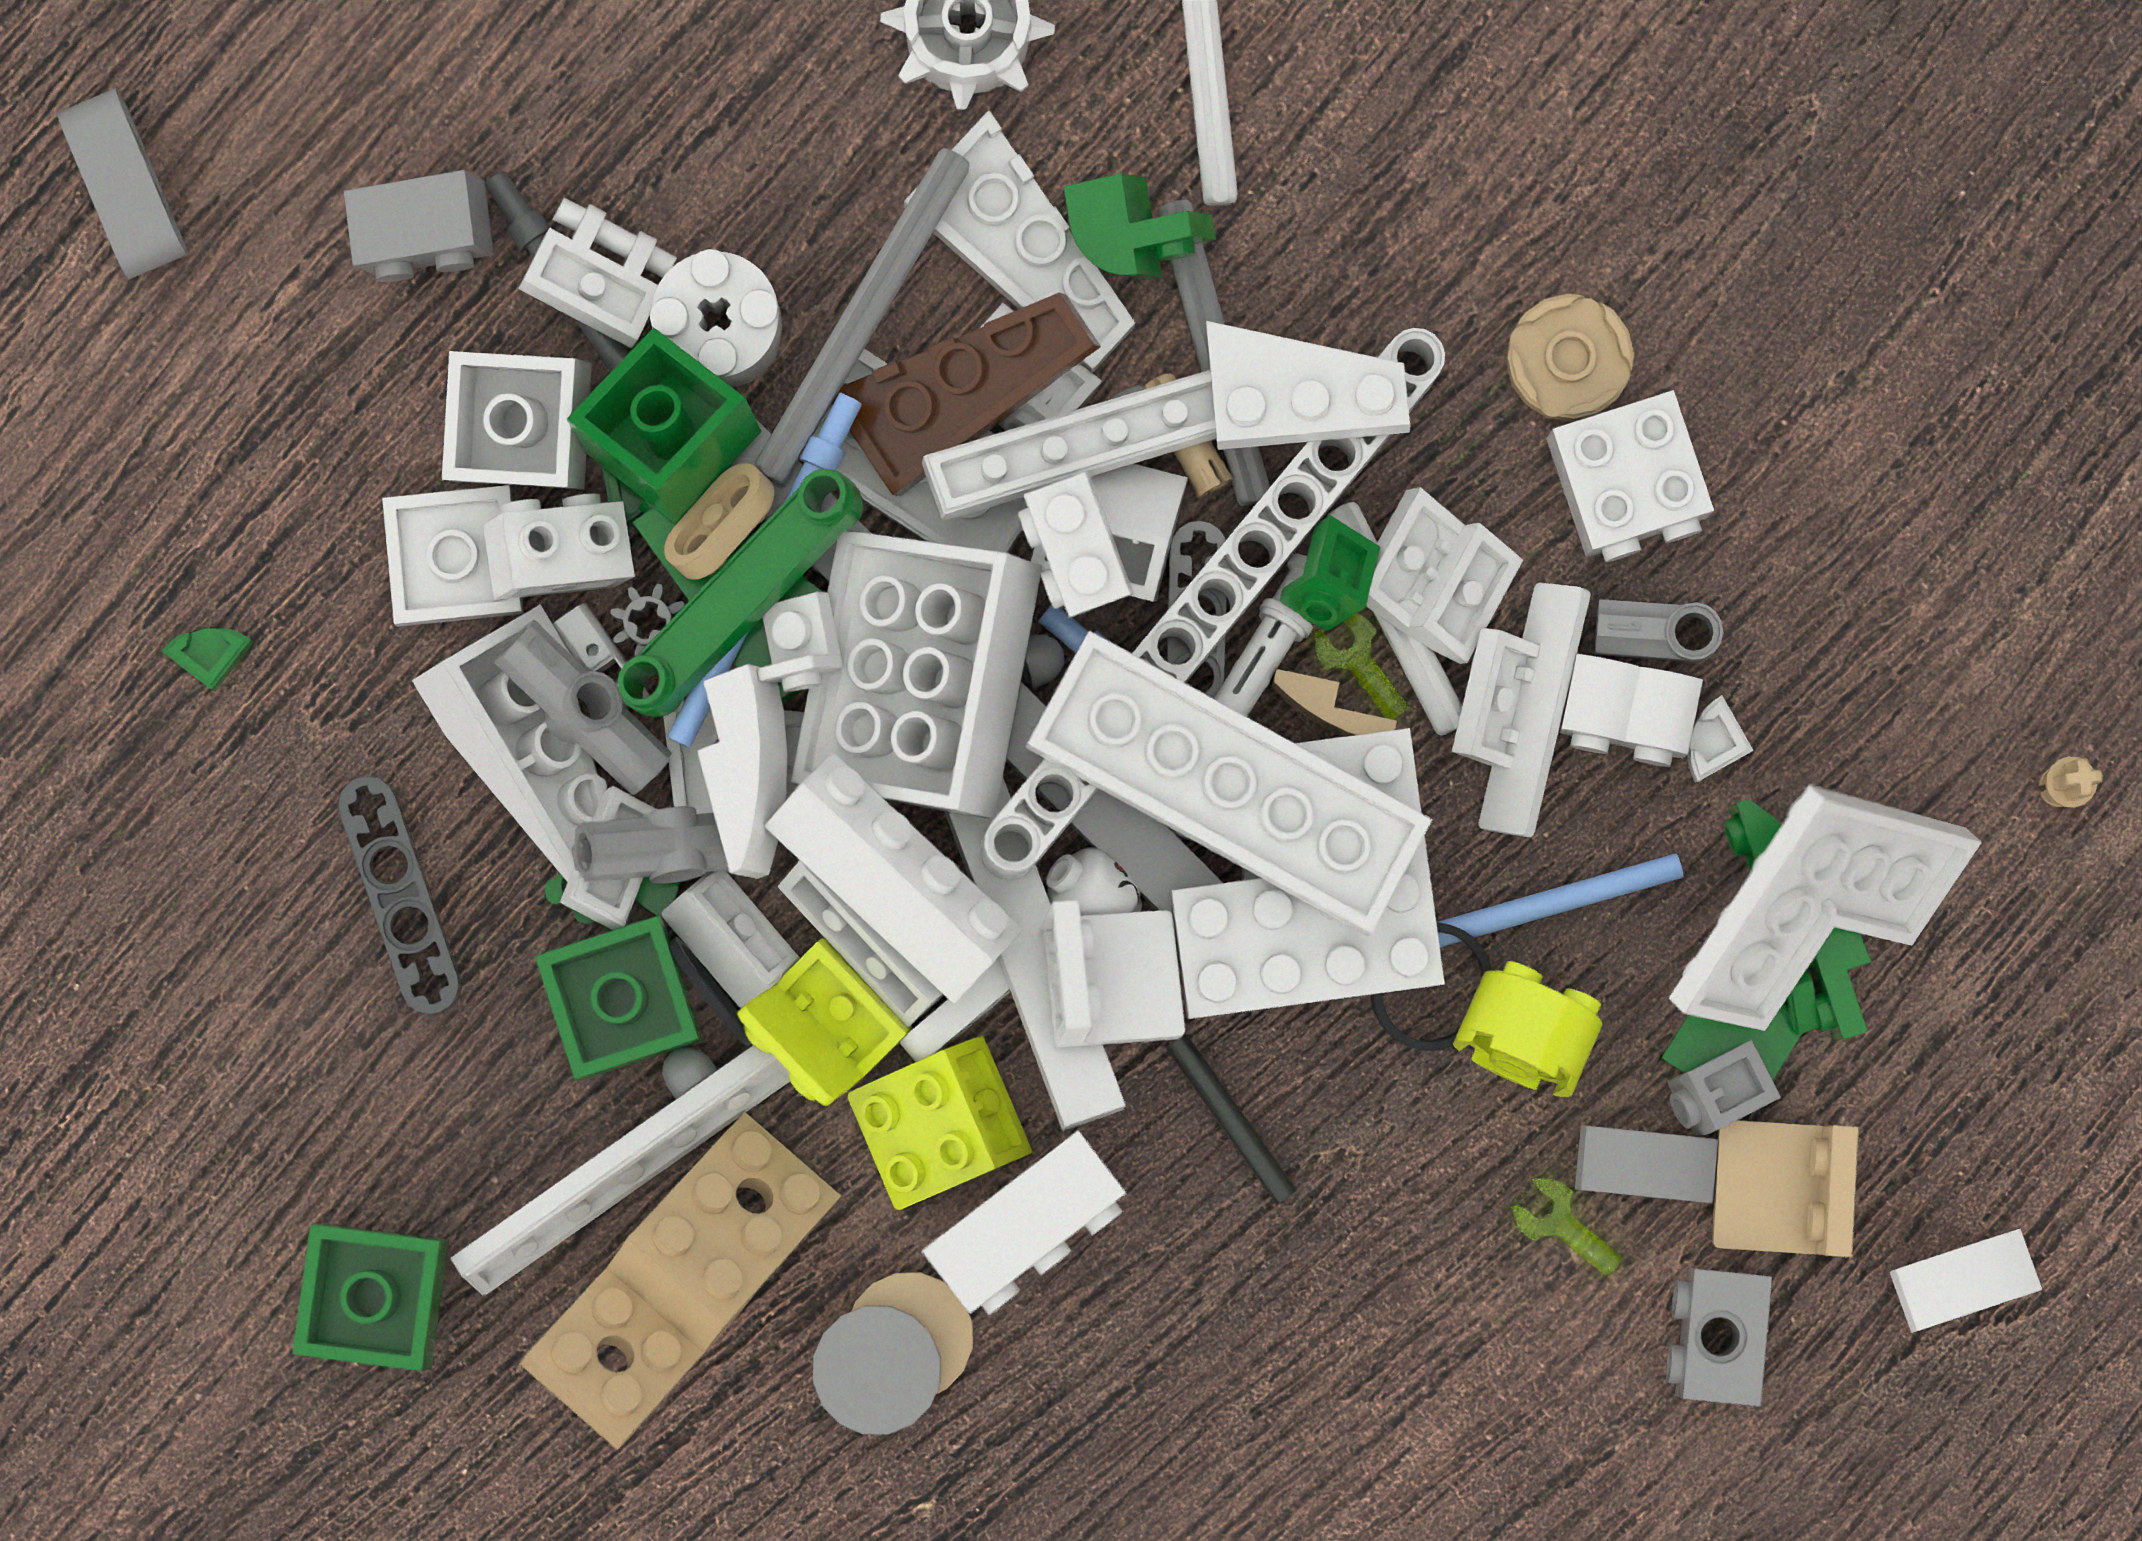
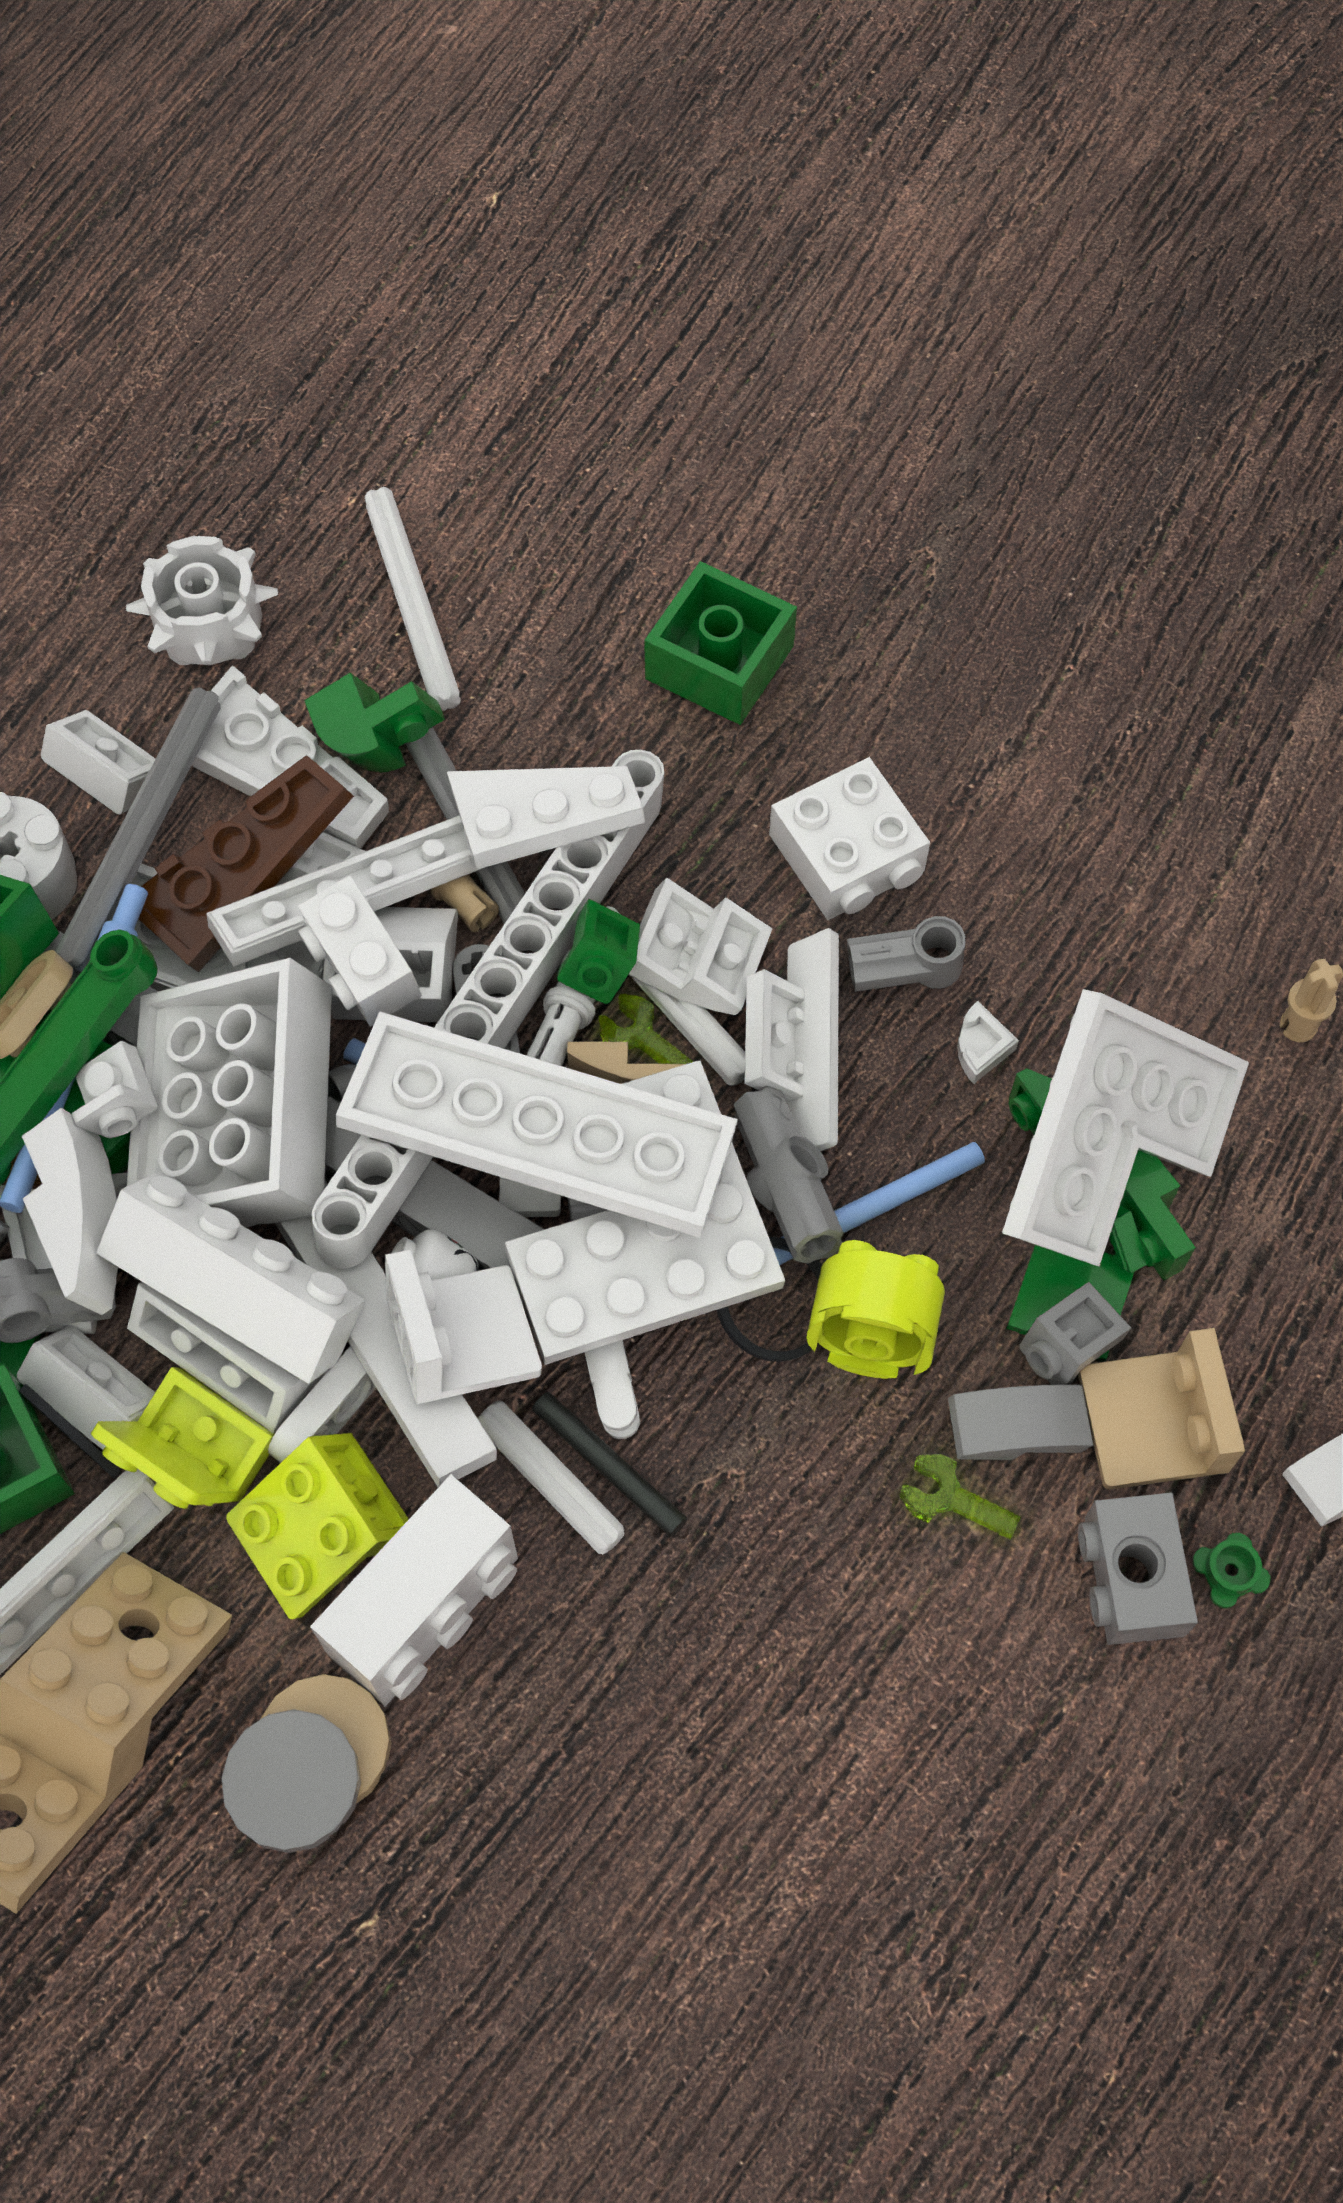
camera: 10 degrees left, 20 degrees down
(686, 1069) = (54, 1518): light grey hinge -> none
(825, 195) = (96, 759): none -> white slope
(1171, 1122) = (551, 1478): none -> white axle
(1251, 1050) = (613, 1390): none -> white bar
(1474, 859) = (788, 1175): none -> light grey piece
(1542, 201) = (720, 642): none -> green brick
(1569, 357) = (769, 762): tan tile -> none
(1630, 709) = (898, 1023): white brick -> none
(1829, 1361) = (1240, 1553): none -> green plate

